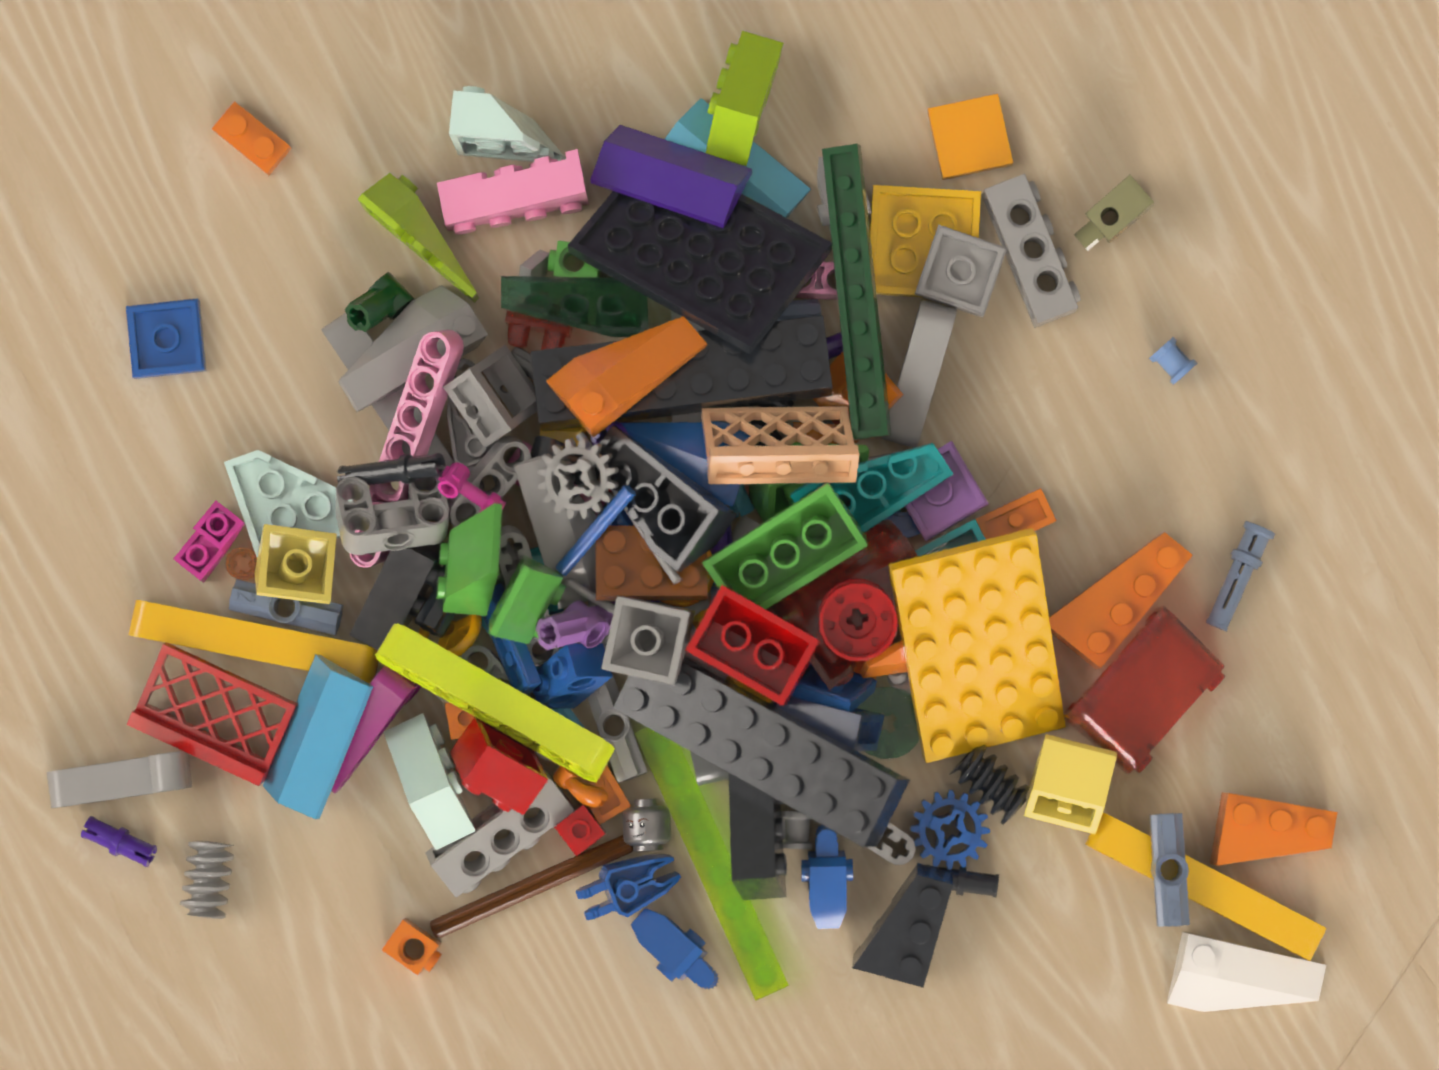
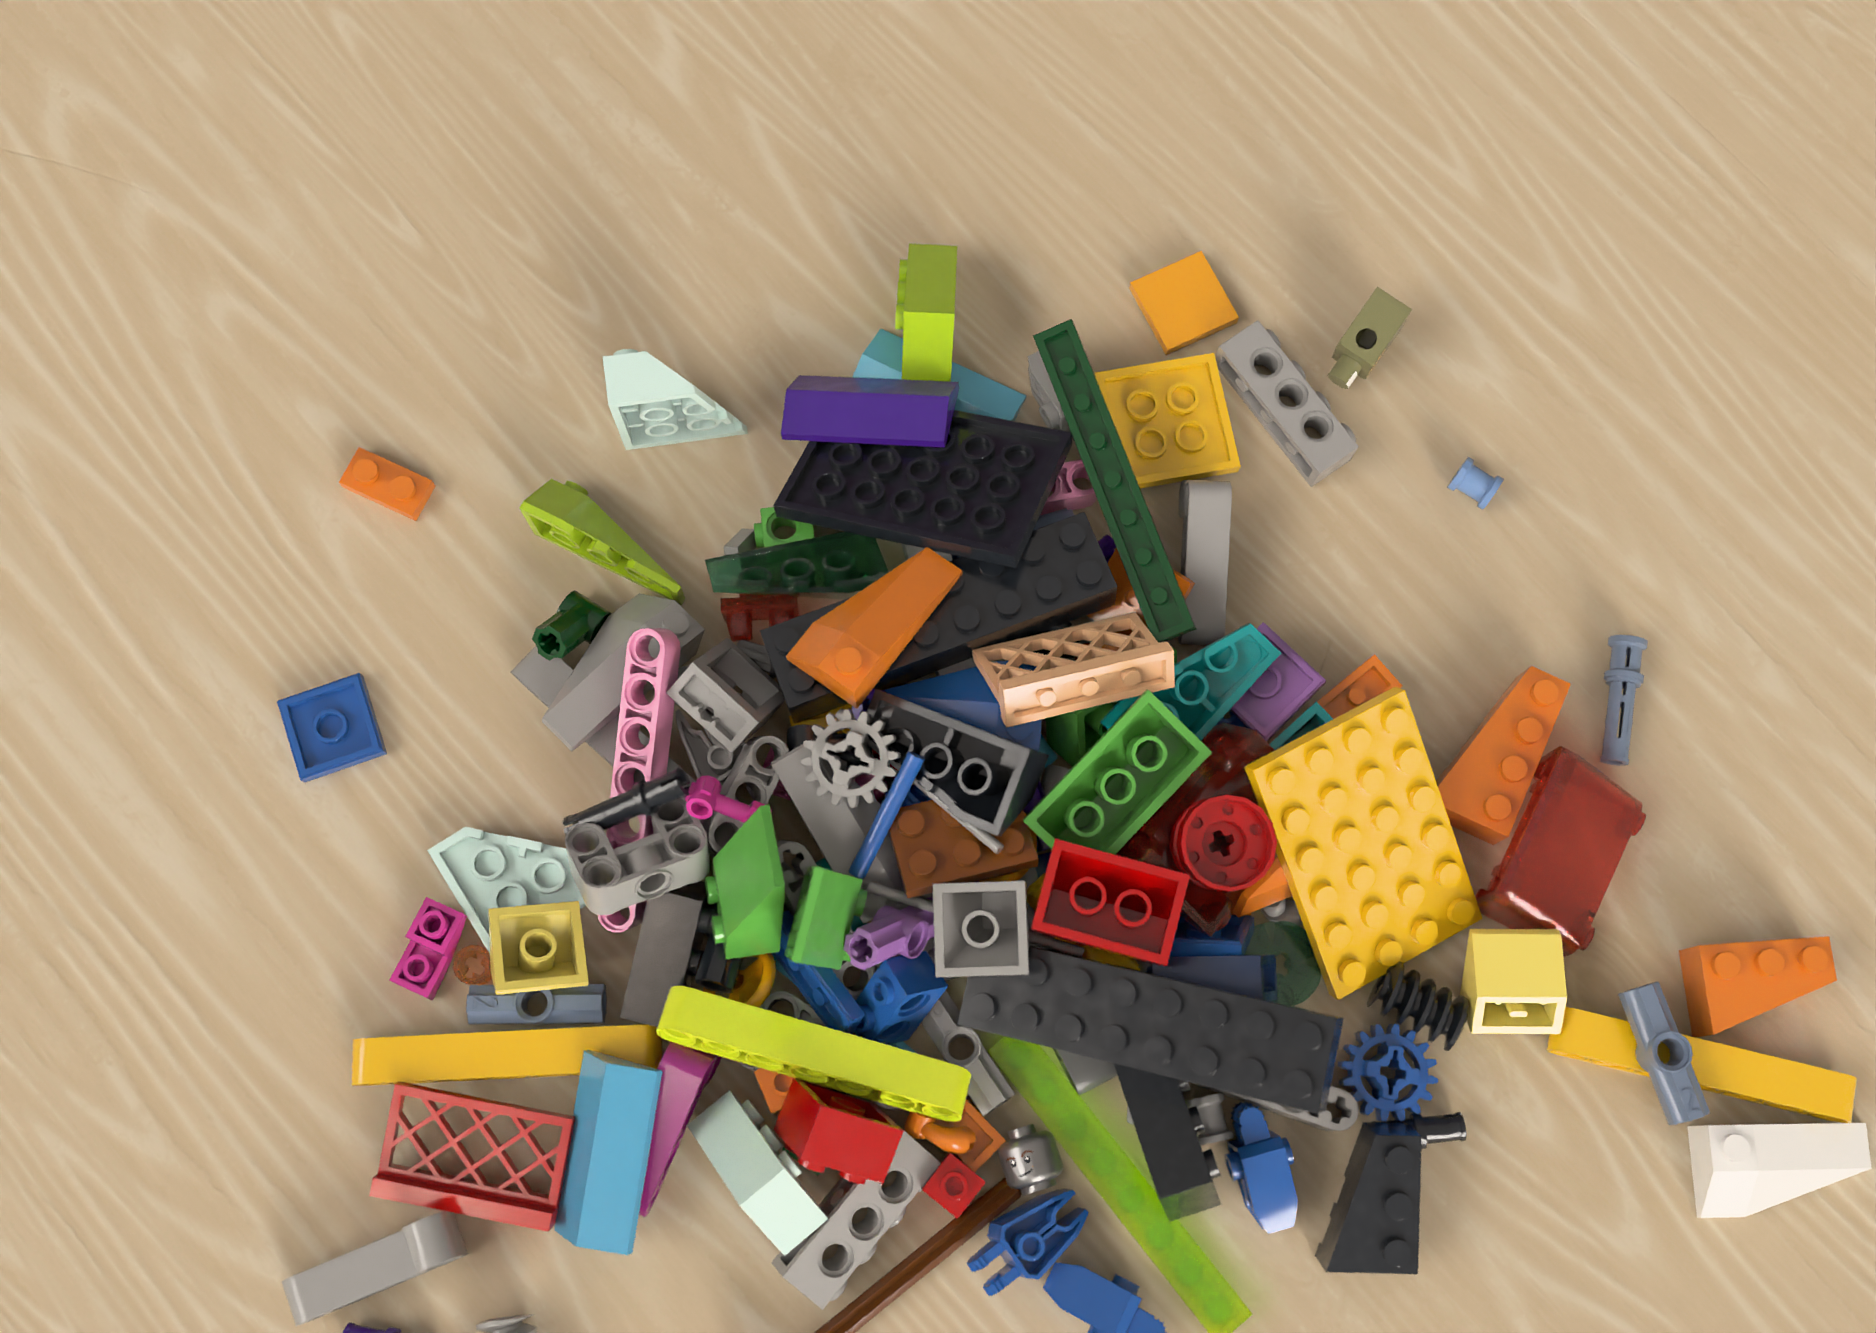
camera: 20 degrees left, 10 degrees down
(513, 194) = (700, 470): bright pink wedge -> none
(960, 271) = (1217, 439): light grey tile -> none

